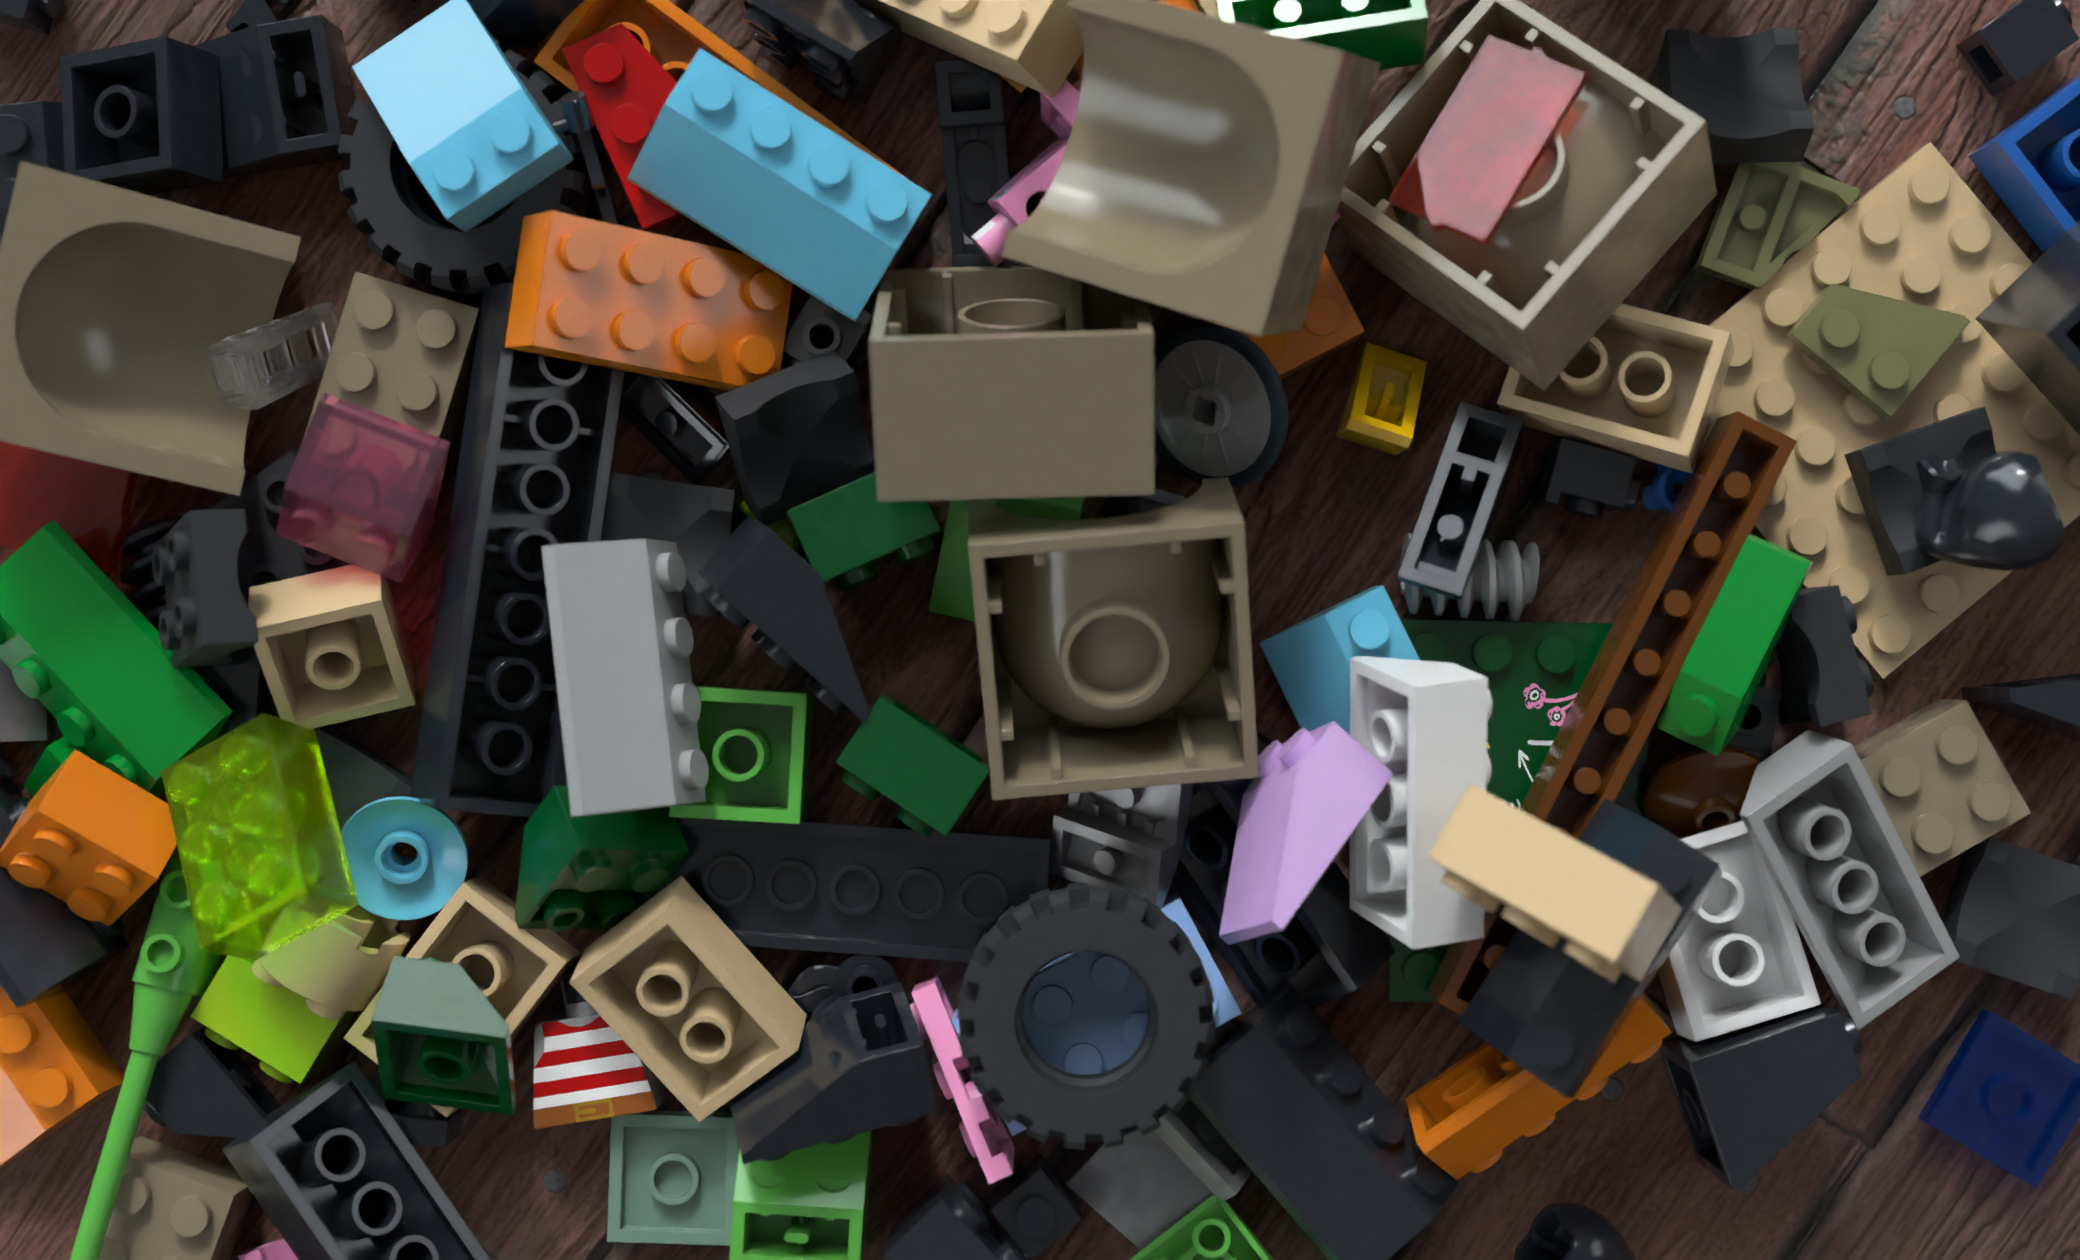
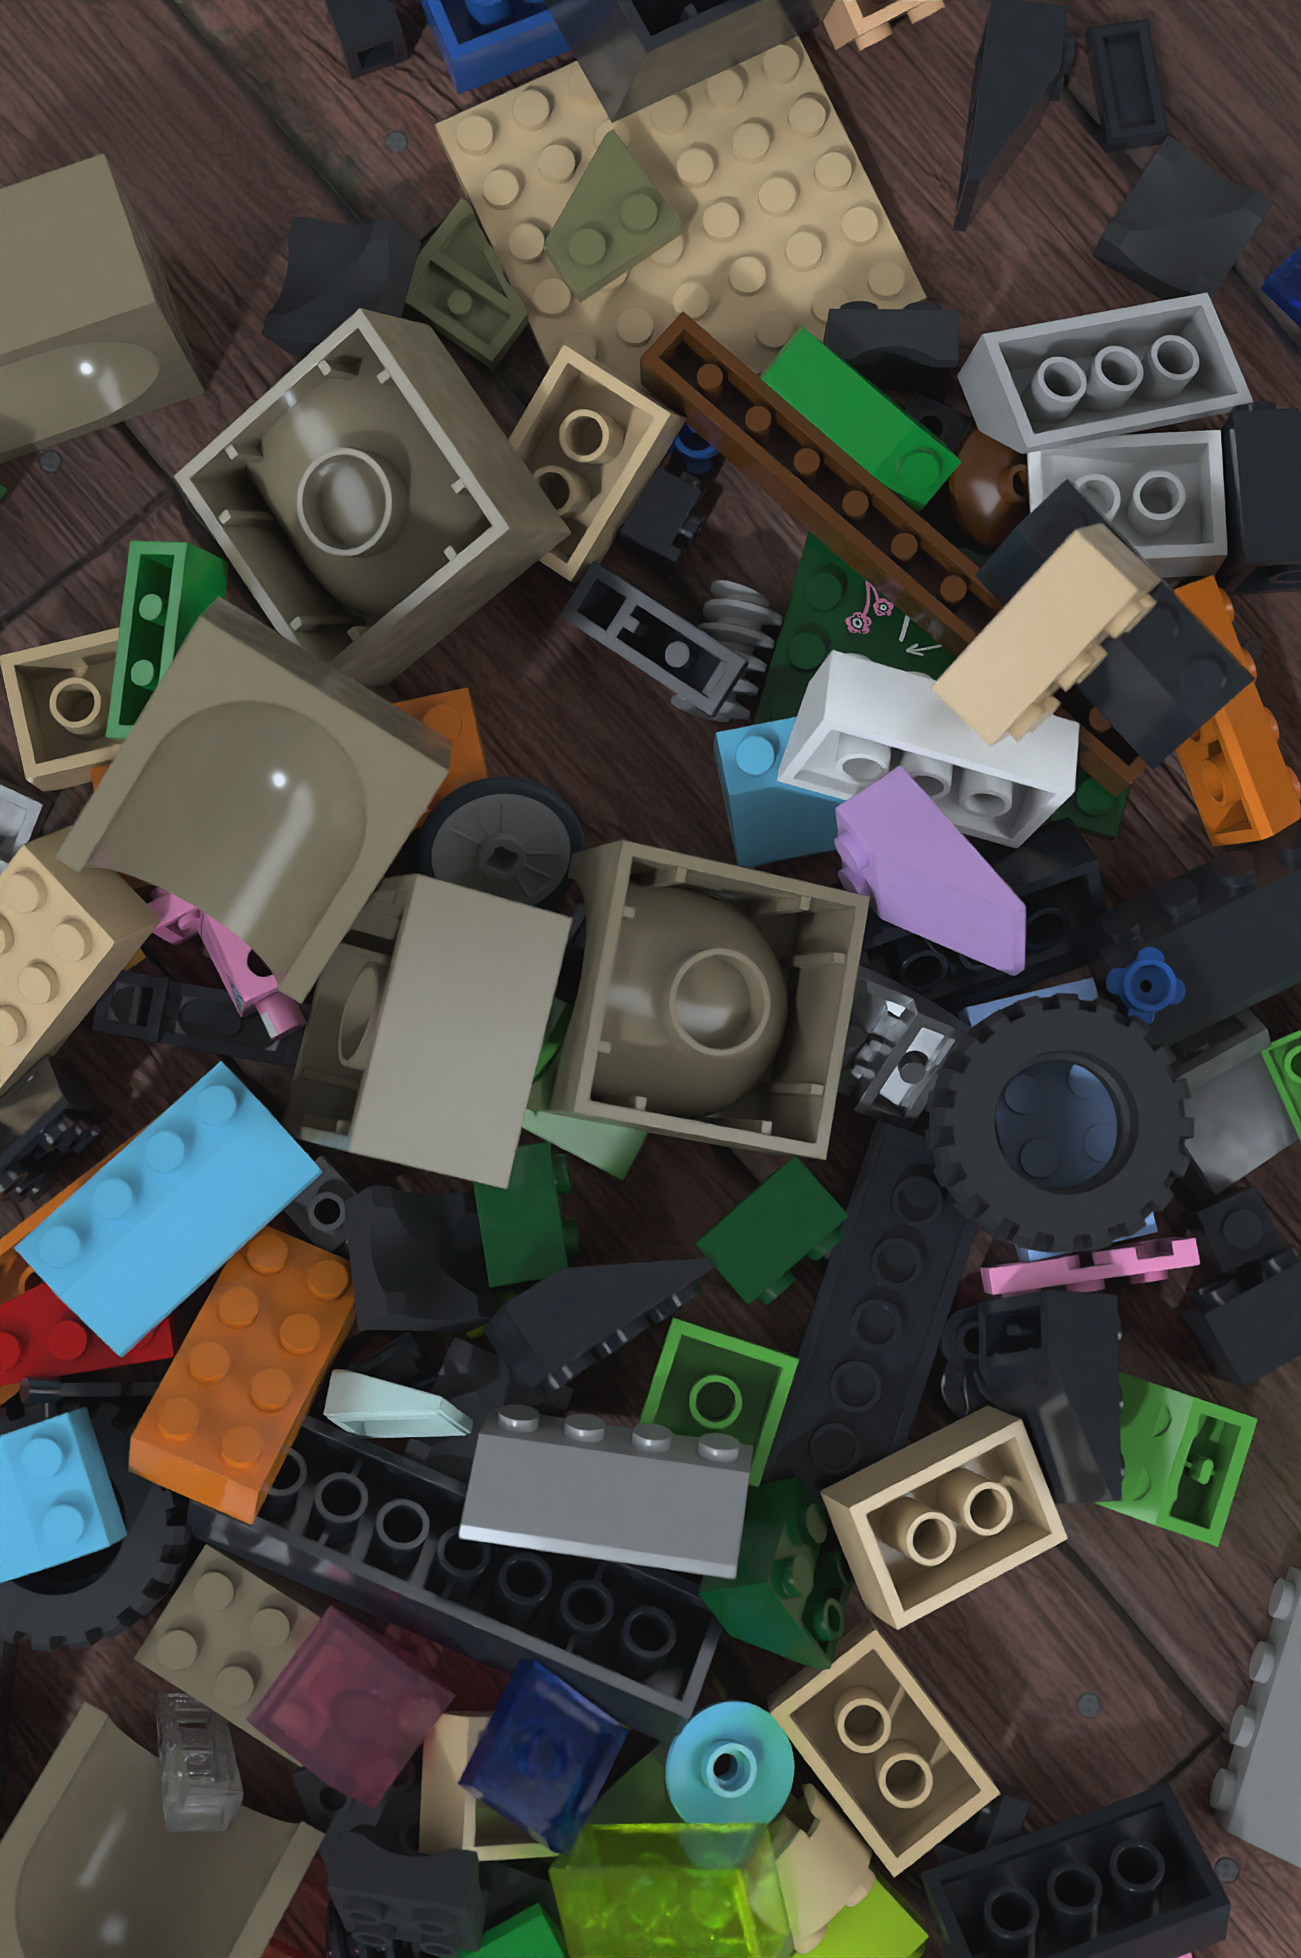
camera: 80 degrees left, 5 degrees down
(364, 680) = (543, 1757): none -> clear blue plate
(441, 1039) = (922, 1773): dark green slope -> none
(586, 1068) = (984, 1638): torso -> none
(647, 442) = (389, 1410): none -> light aqua slope
(672, 1178) = (1115, 1582): sand green plate -> none
(1244, 1085) = (1148, 966): none -> blue plate
(1383, 400) = (539, 690): yellow slope -> none
(1488, 139) = (319, 518): clear red piece -> none
(1892, 488) = (765, 202): black brick -> none
(1941, 782) = (1037, 266): dark tan brick -> none
(1988, 514) = (799, 153): black piece -> none

